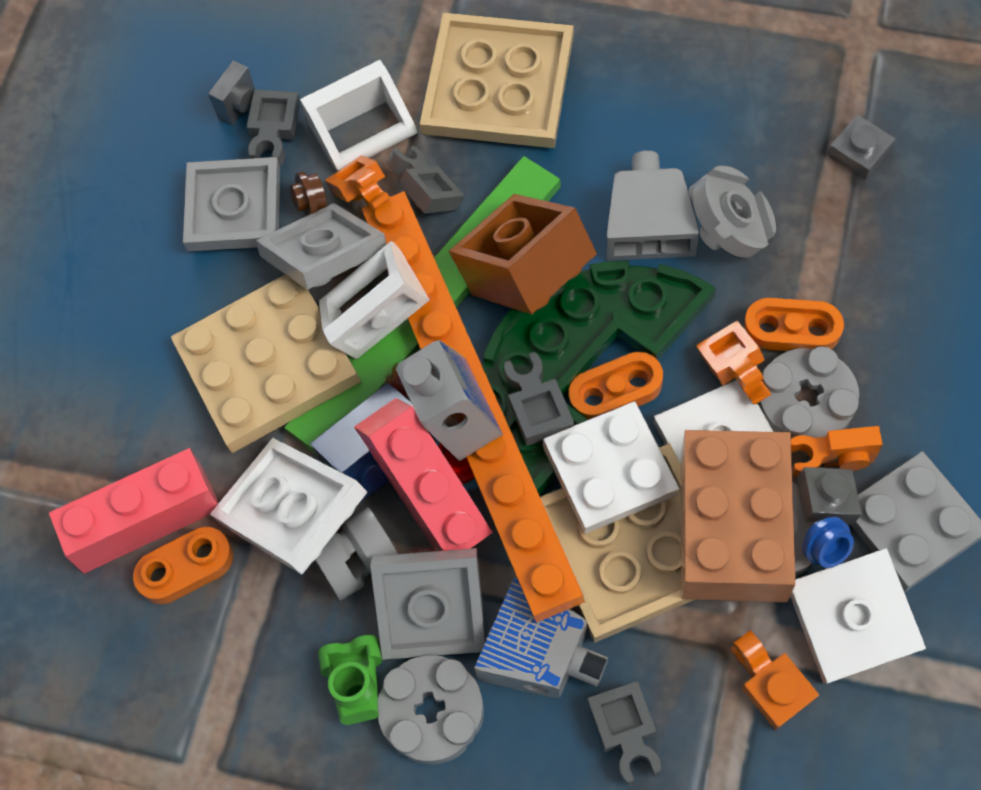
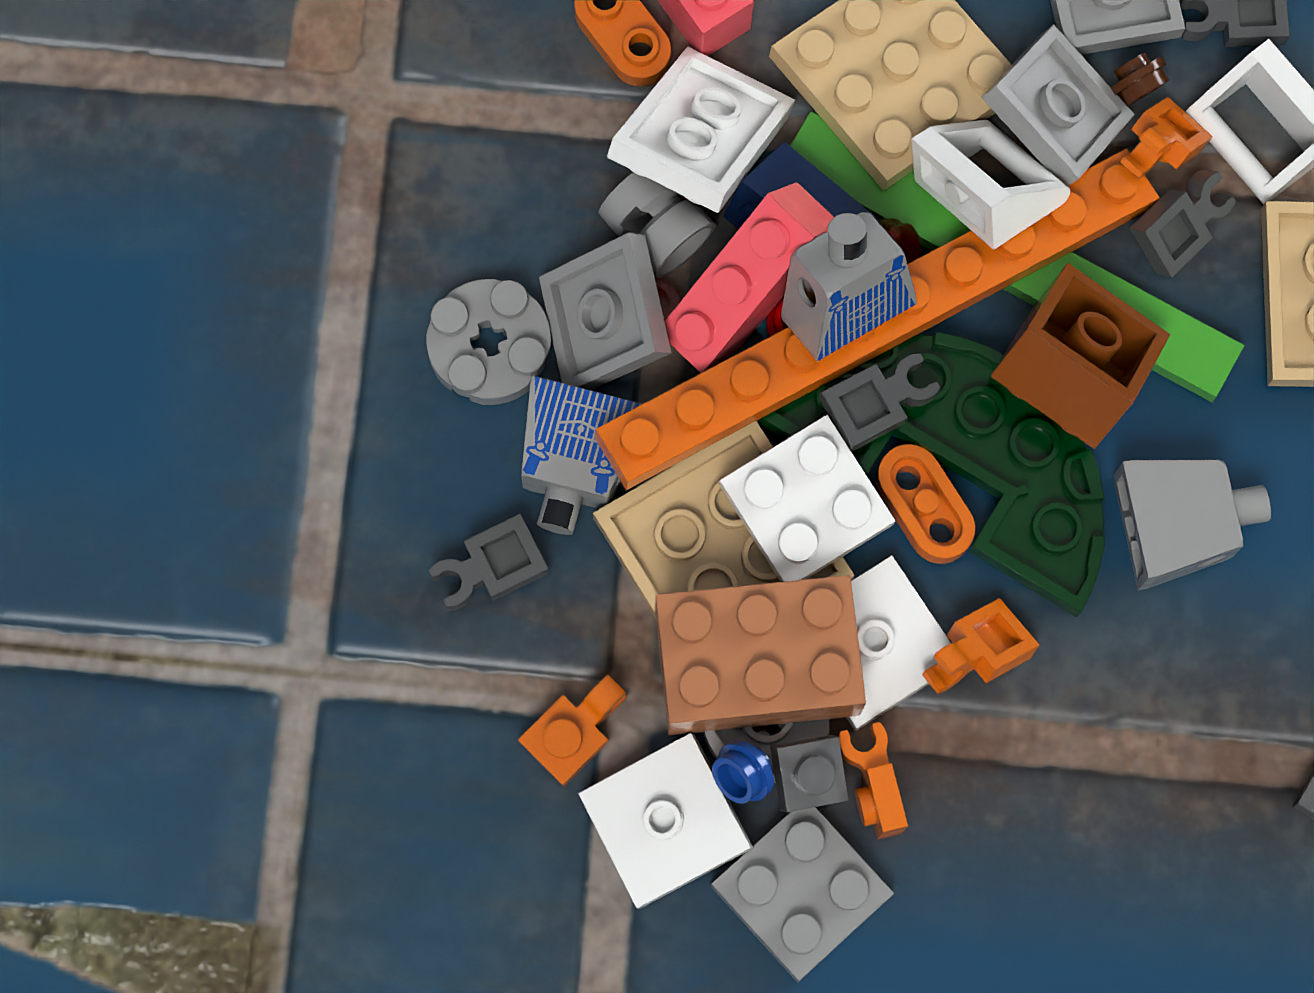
camera: 70 degrees right, 10 degrees up
(353, 671) = (519, 244): bright green plate -> none
(731, 213) = (1172, 597): light grey plate -> none
(792, 323) = (1046, 720): orange plate -> none
(819, 371) = (942, 782): light grey plate -> none

